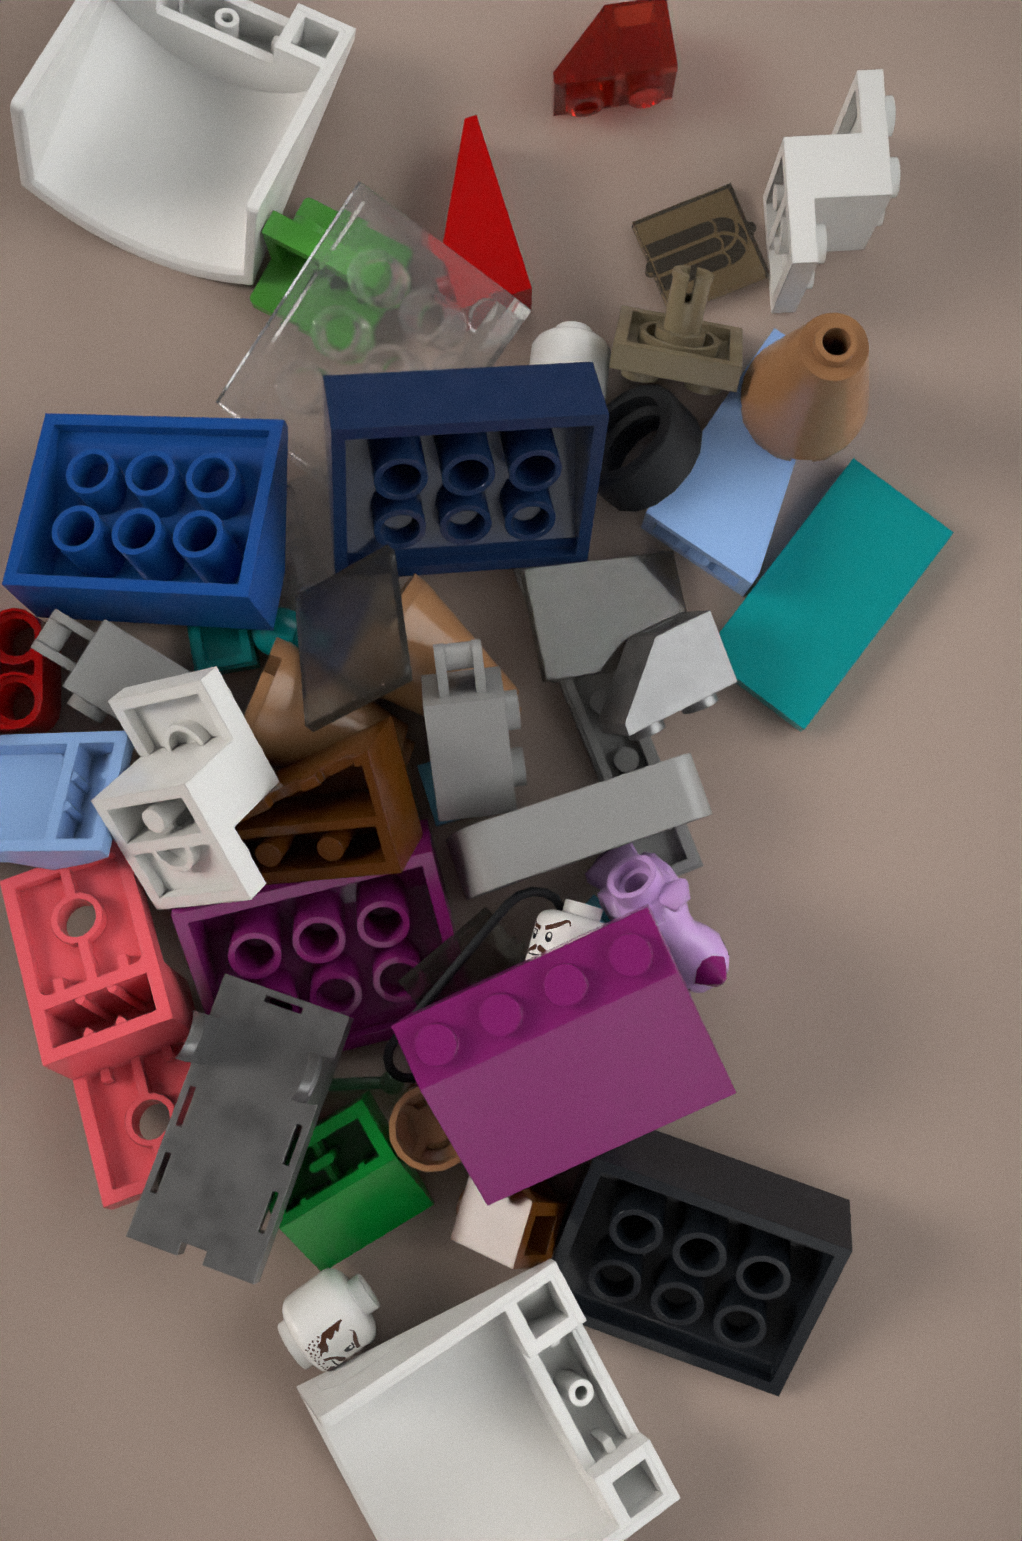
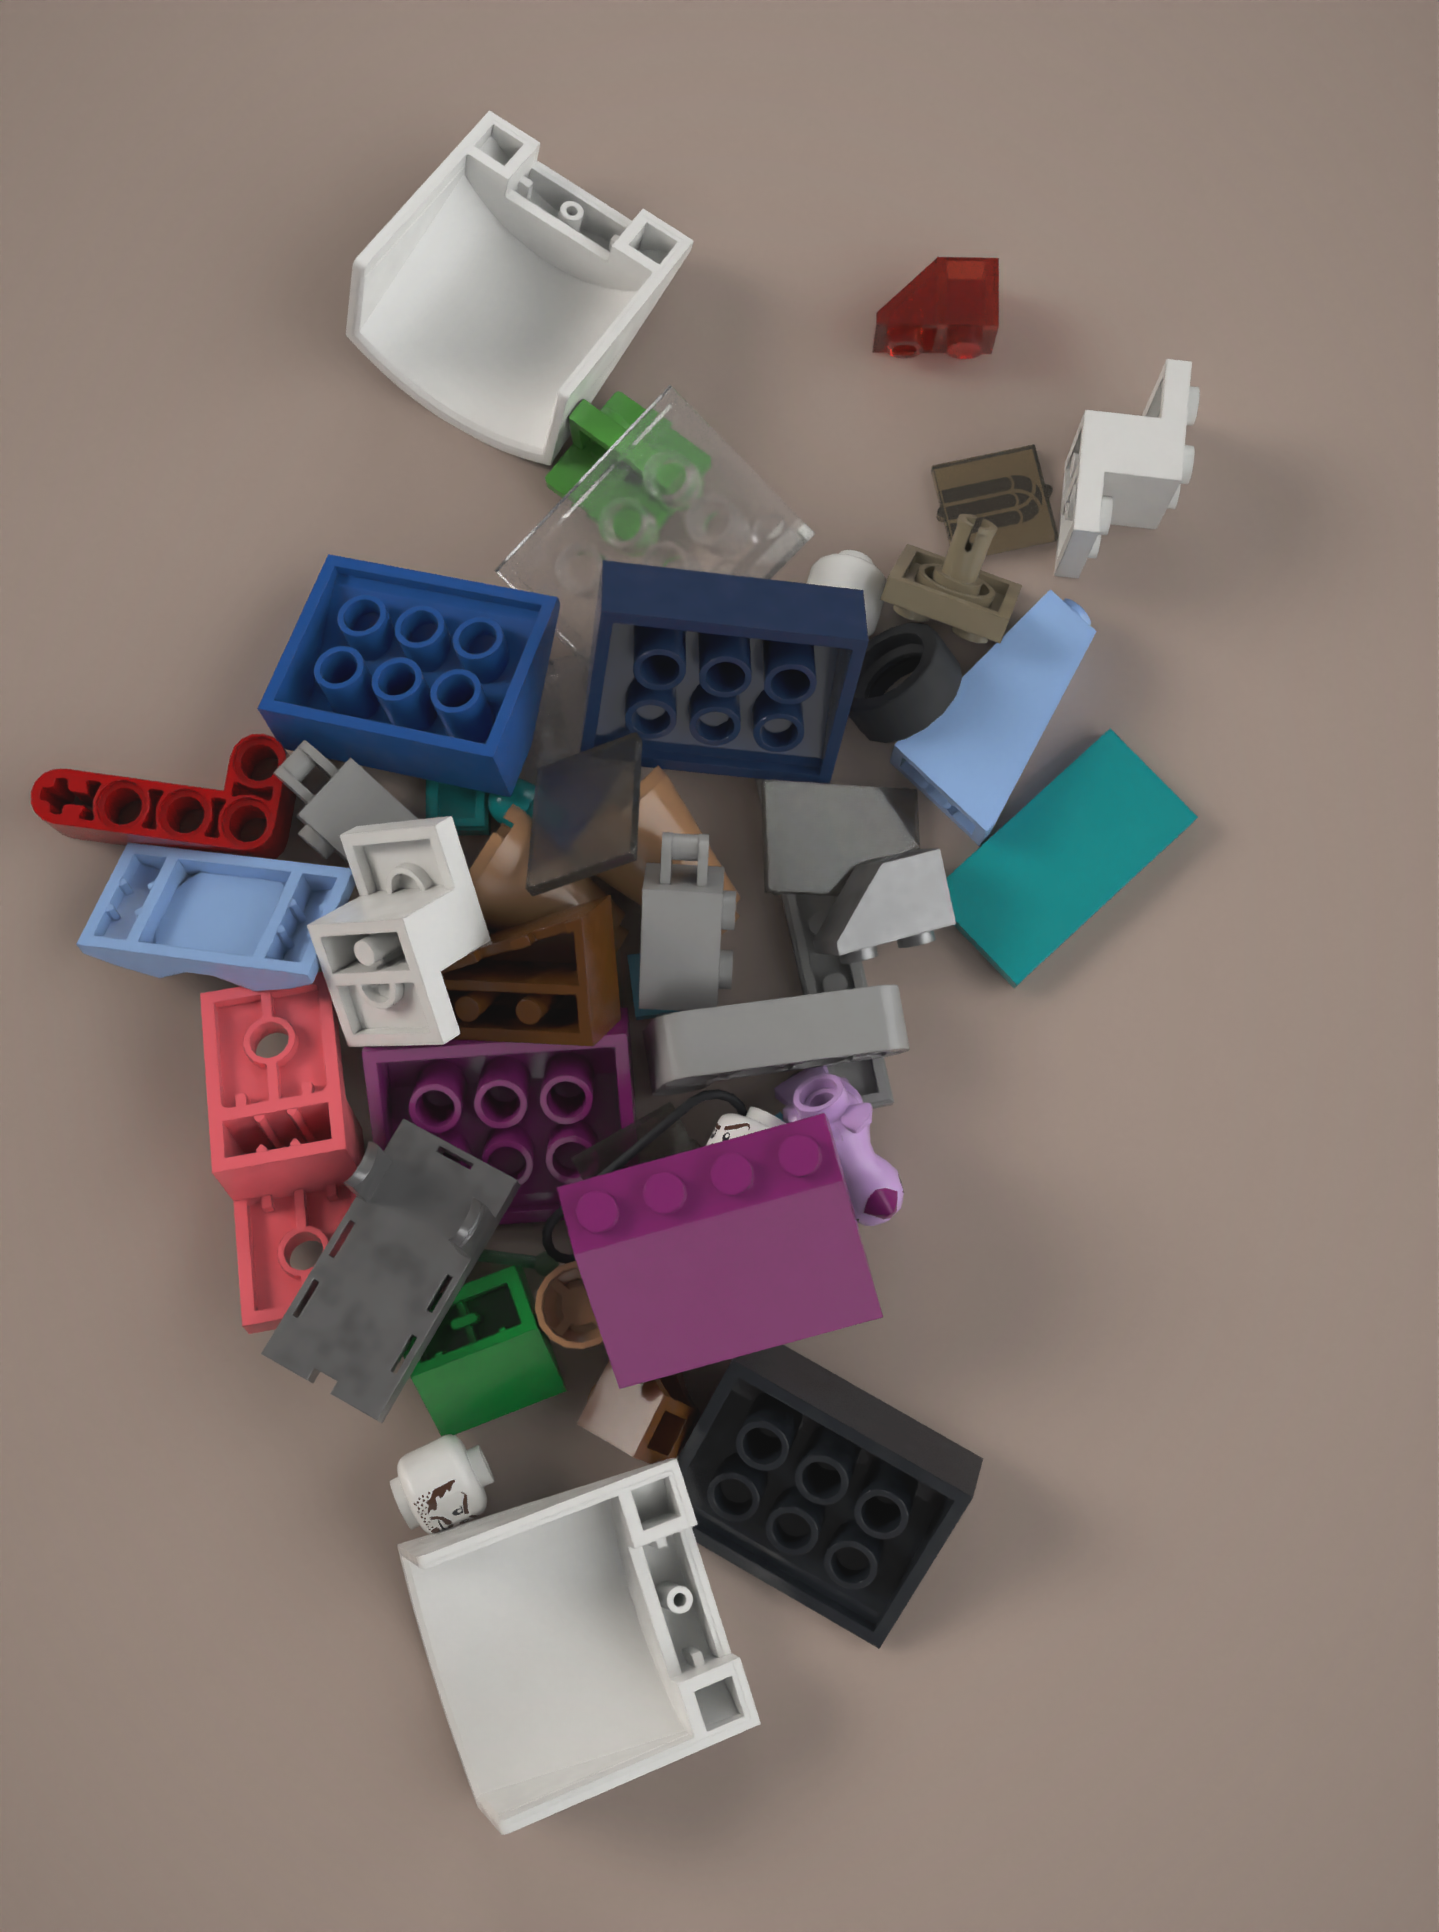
camera: 10 degrees right, 5 degrees down
(479, 220) = (781, 440): red slope -> none
(809, 389) = (1071, 654): medium nougat cone -> none

